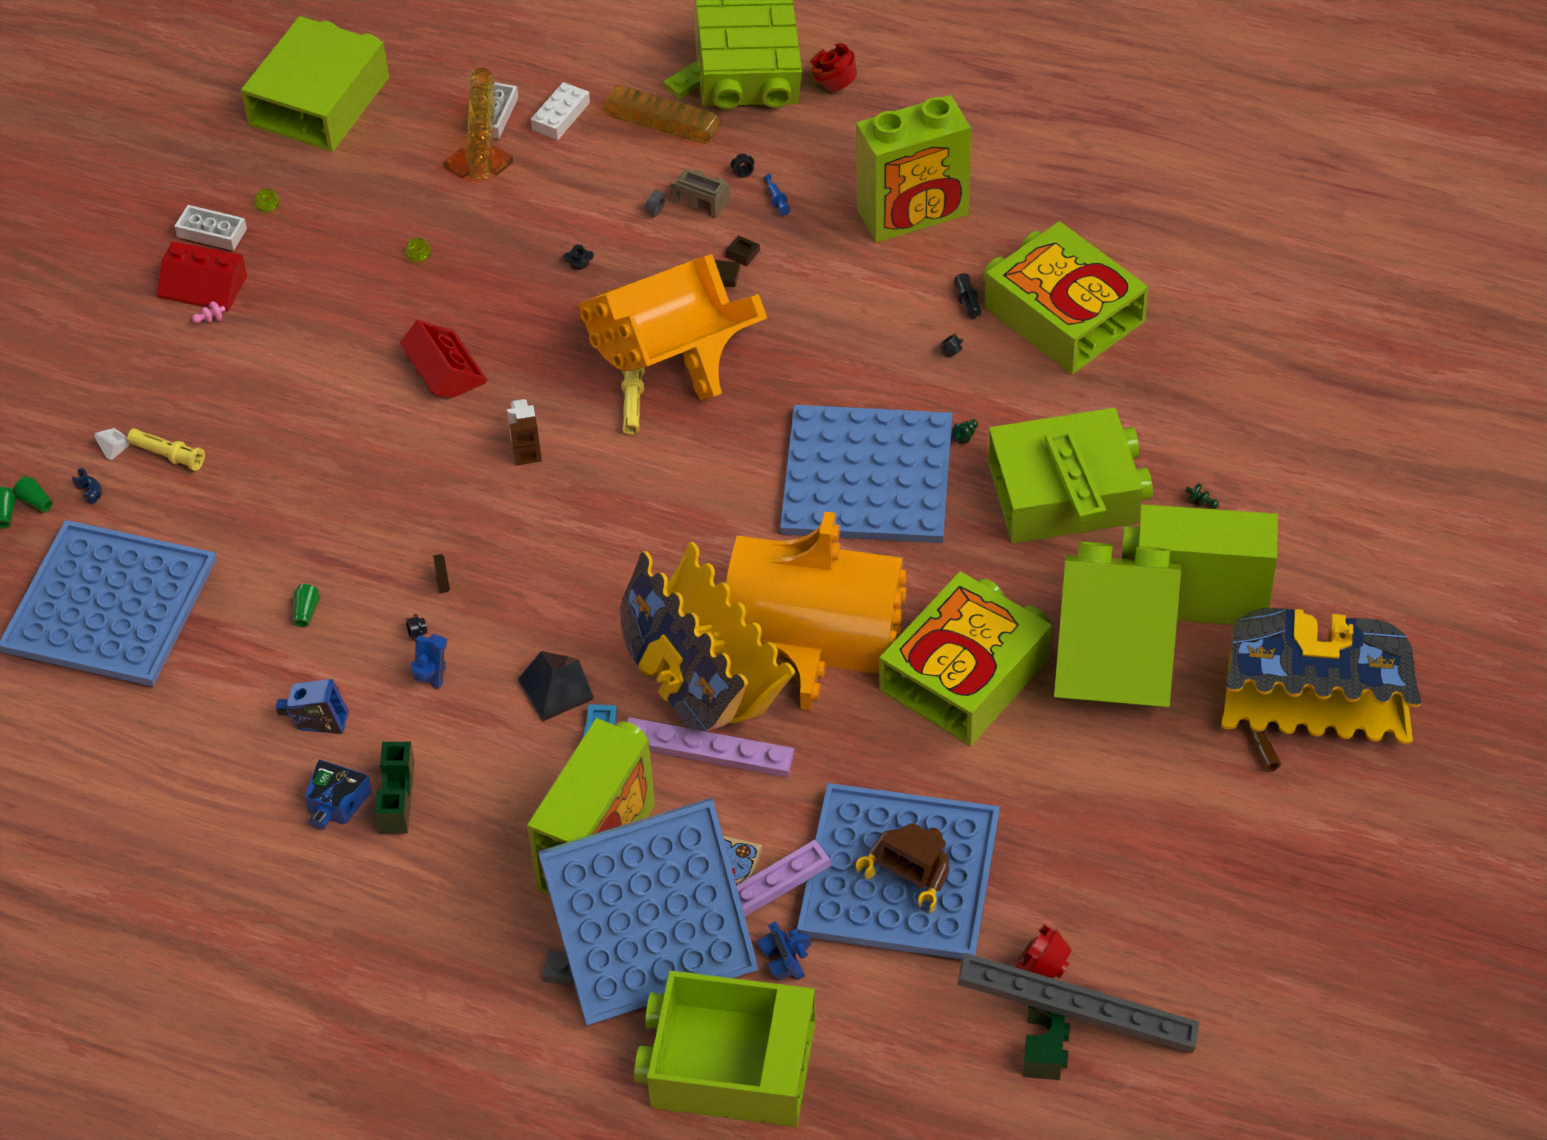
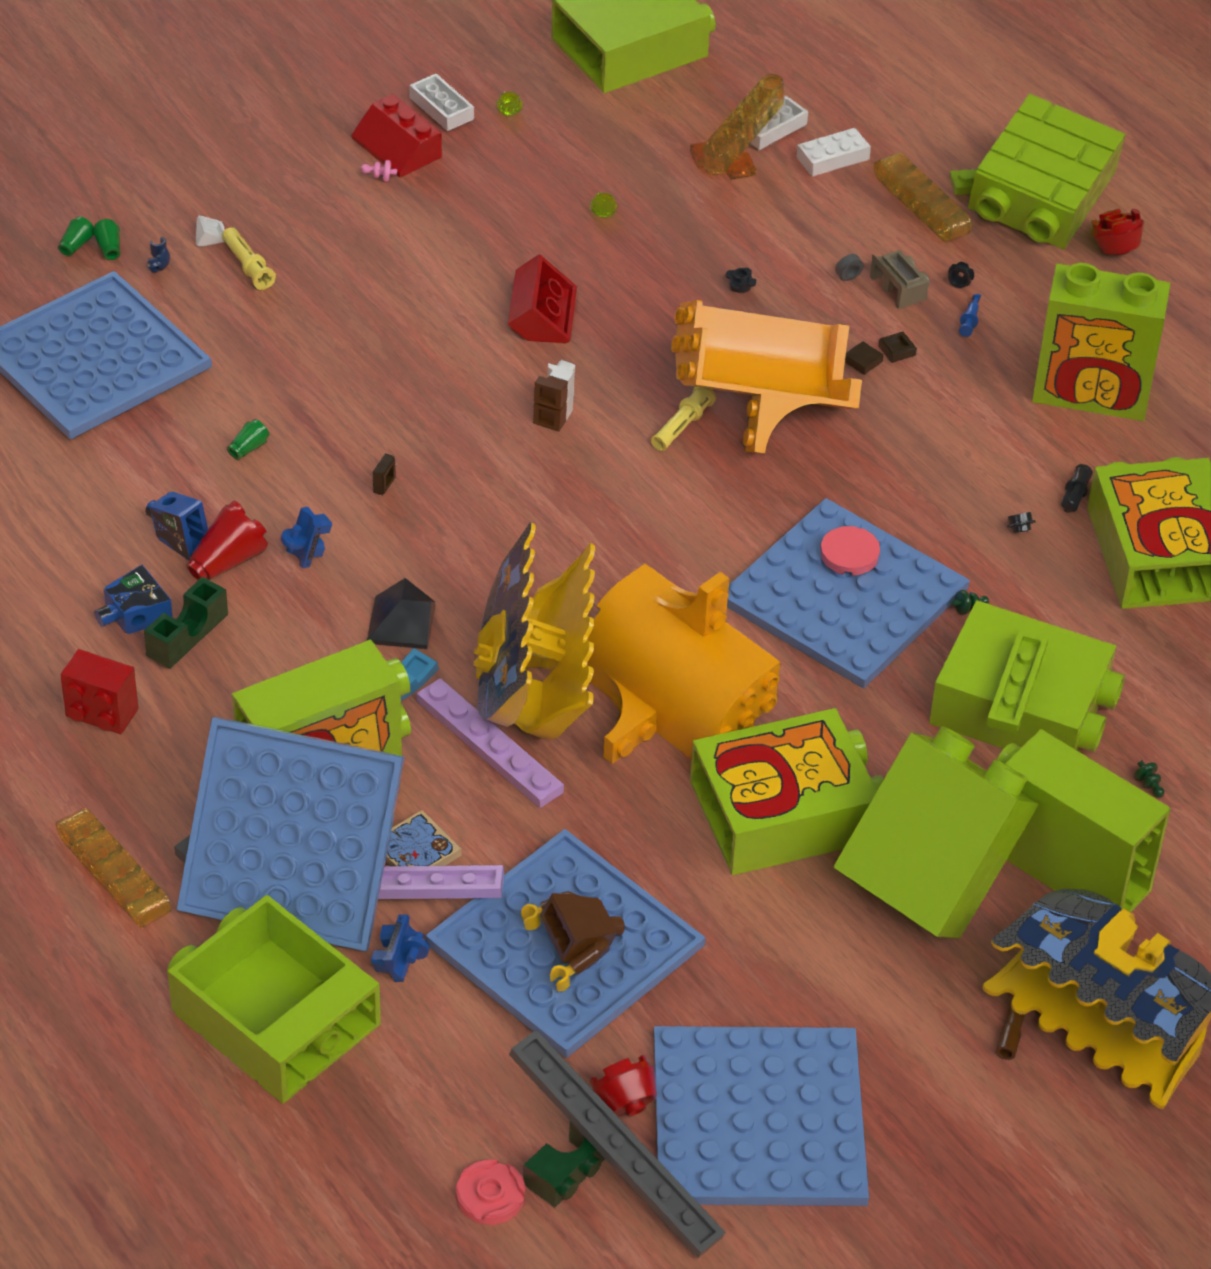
camera: 30 degrees right, 5 degrees down
(370, 701) = (227, 543): none -> red cone
(378, 885) = (99, 691): none -> red brick
(416, 627) = (325, 505): black plate -> none
(509, 1021) = (113, 867): none -> clear yellow beam
(852, 437) = (850, 550): none -> coral tile
(1007, 1097) = (490, 1192): none -> coral tile
(1146, 916) = (761, 1114): none -> medium blue plate

